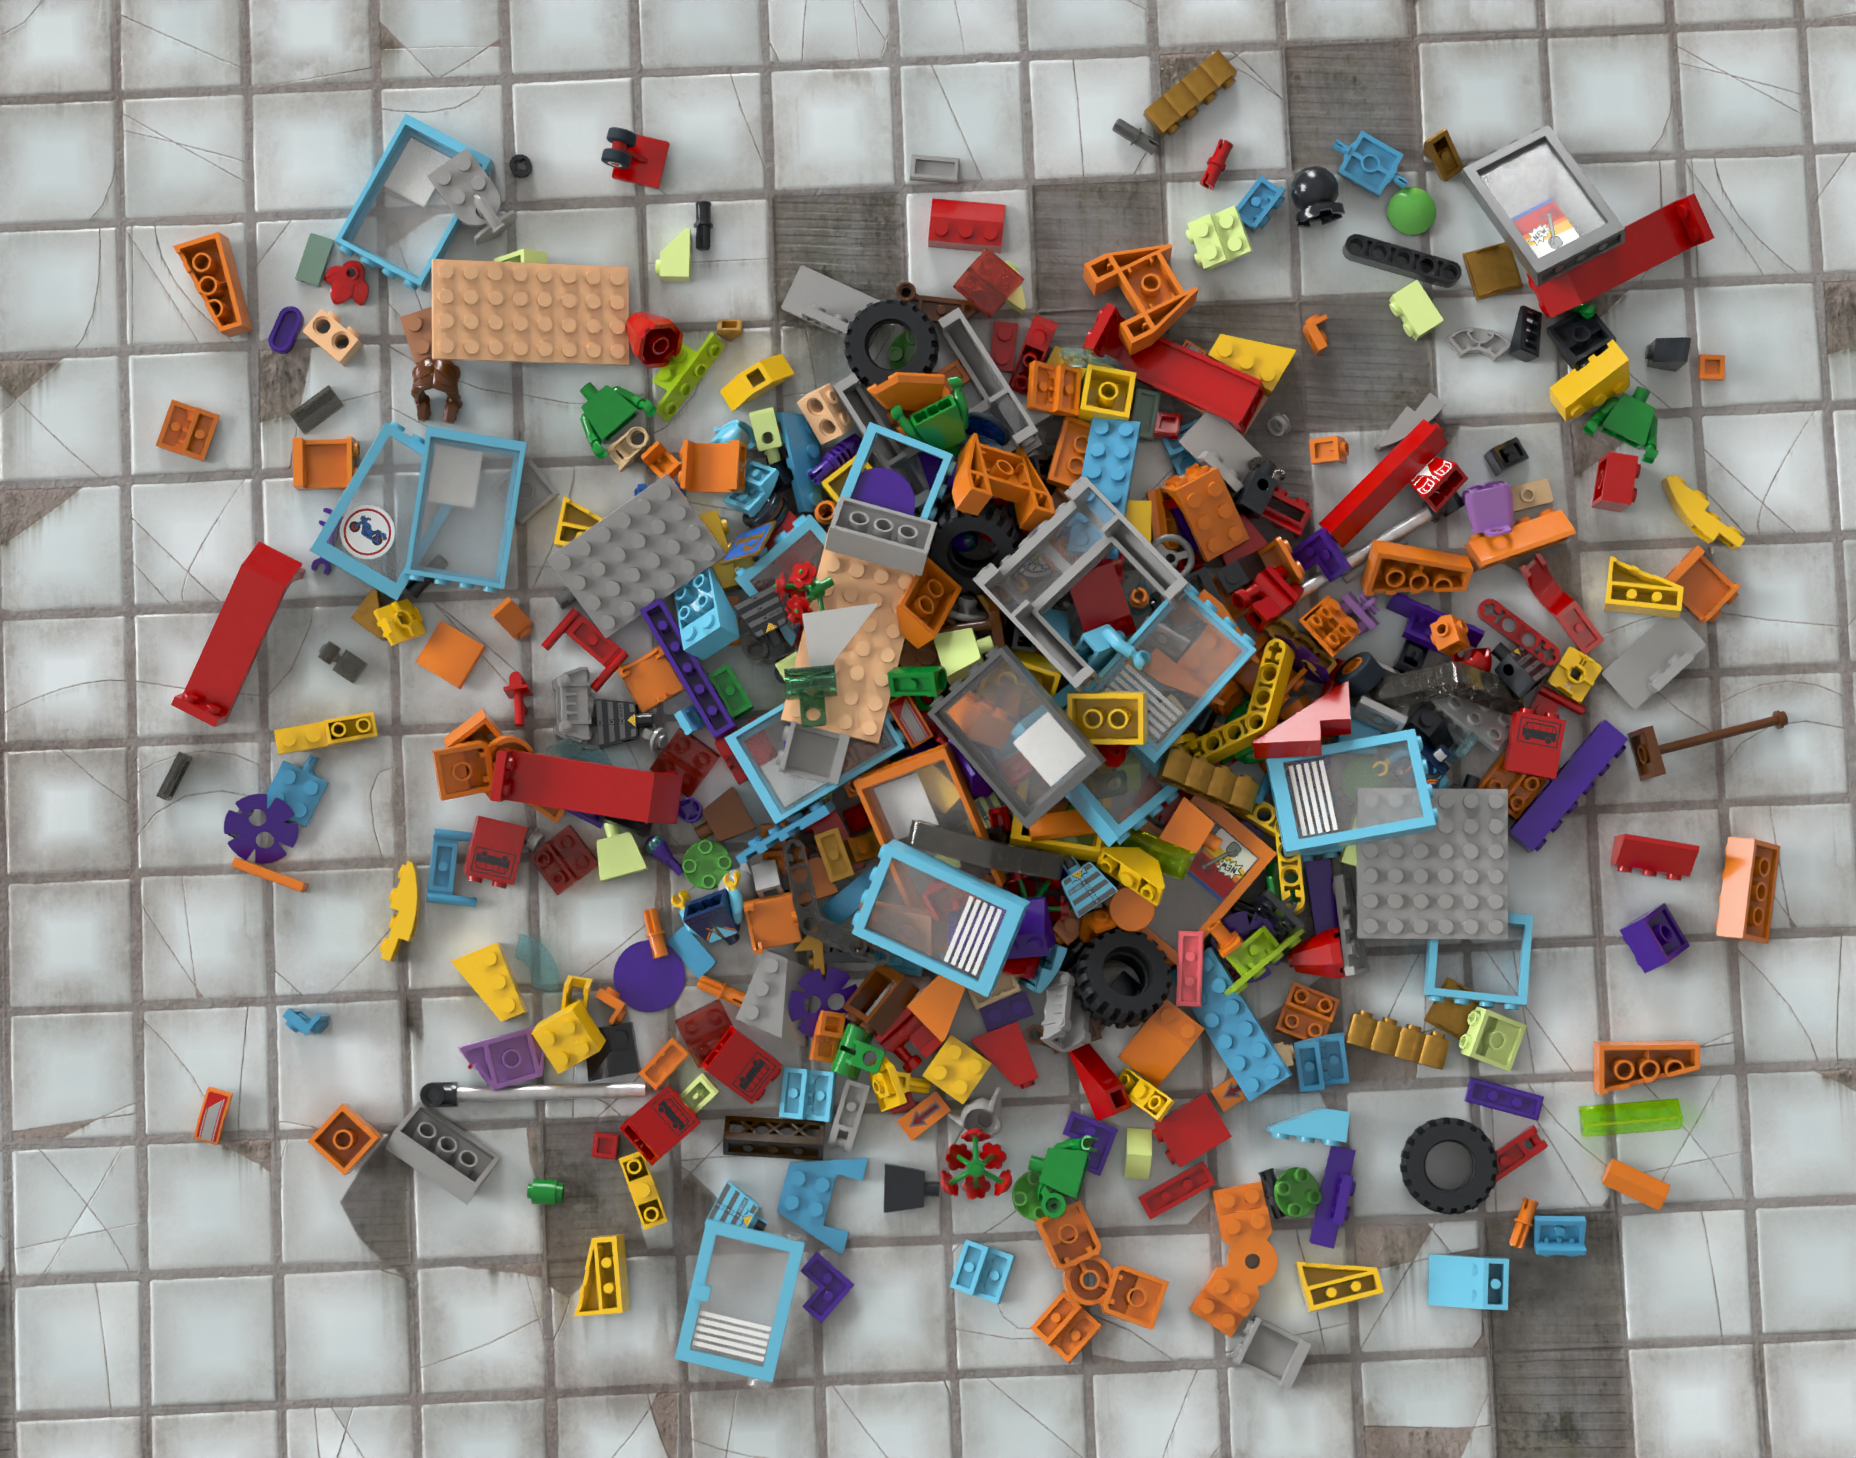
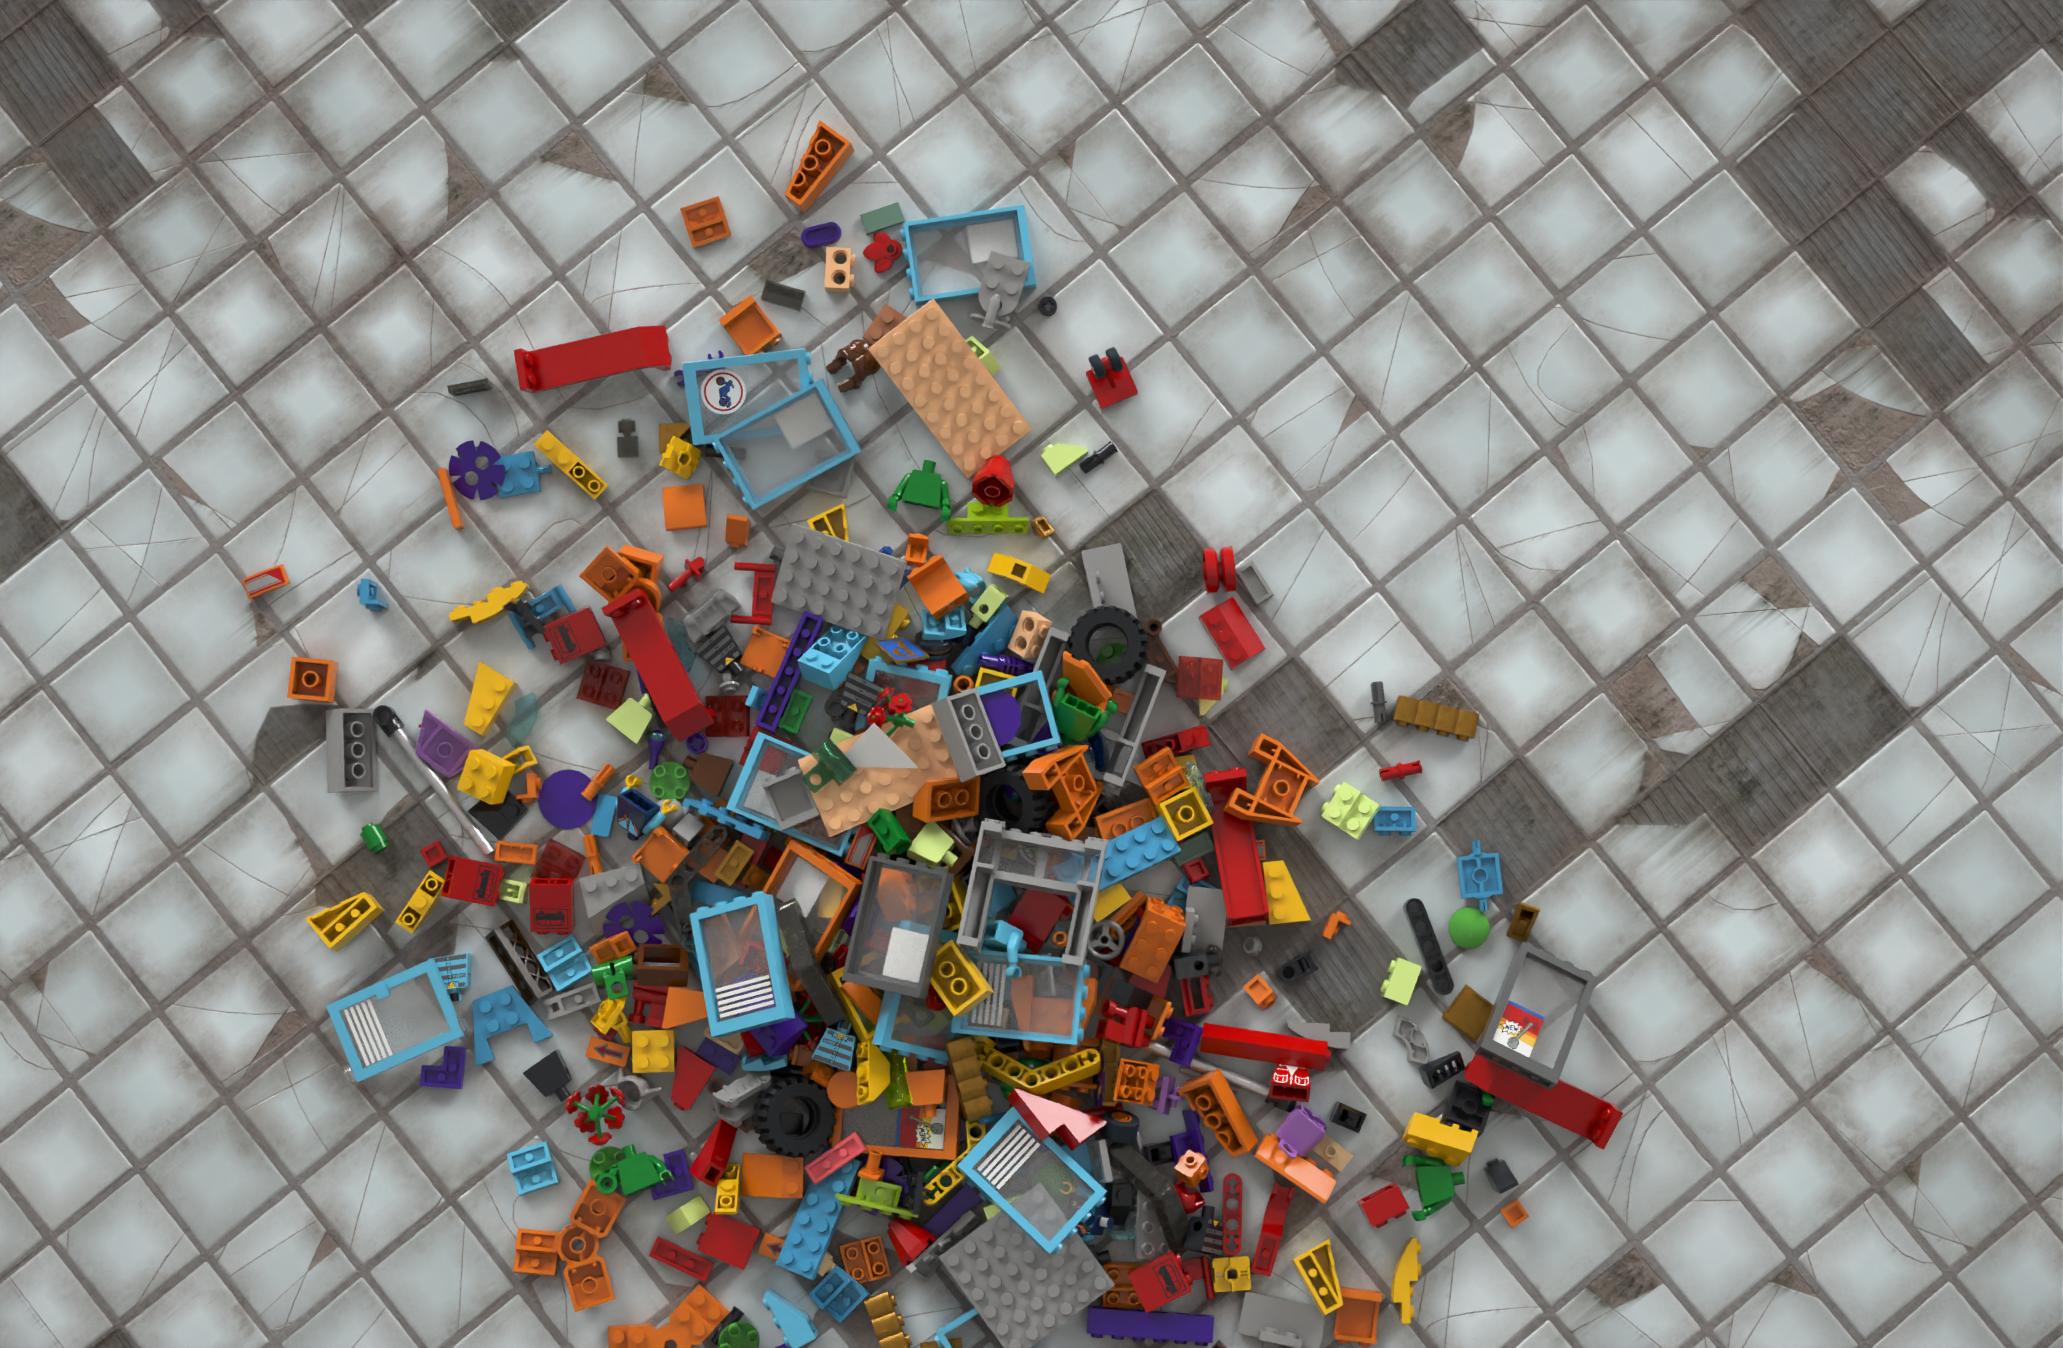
camera: 55 degrees right, 0 degrees up
(450, 882) = (532, 624): none -> black piece
(628, 449) = (909, 521): tan piece -> none
(898, 189) = (1220, 569): none -> red wheel
(1004, 345) = (1167, 719): red plate -> none
(1316, 194) = (1428, 854): black tile -> none
(1330, 394) = (1298, 966): none -> black piece

